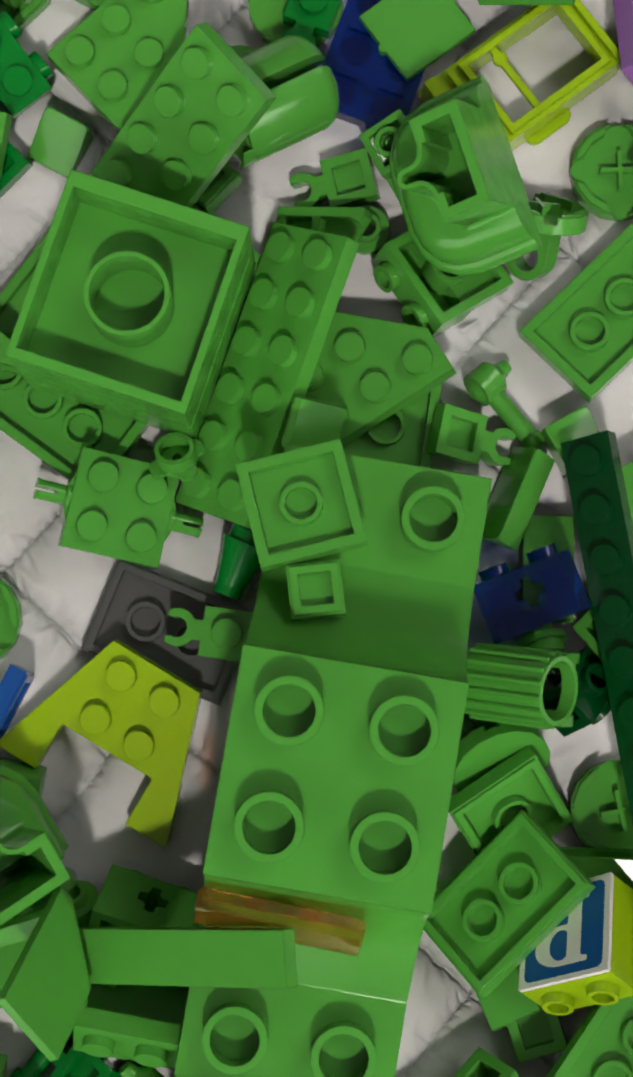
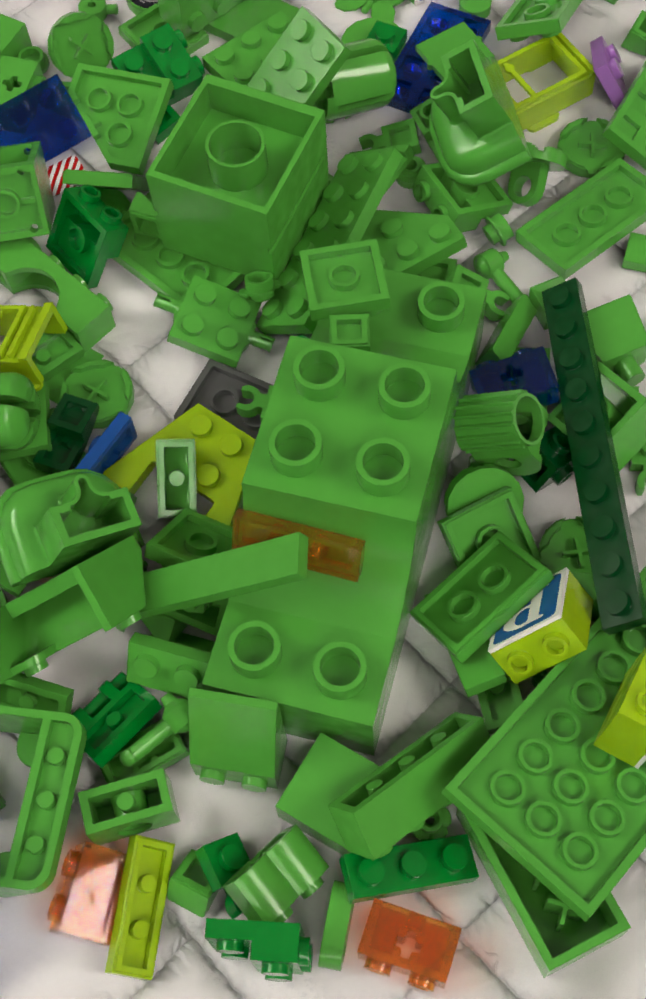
camera: 10 degrees right, 20 degrees down
(97, 753) = (176, 476): none -> bright green slope
(142, 861) = (188, 538): none -> bright green plate
(493, 325) = (497, 229): none -> bright green plate

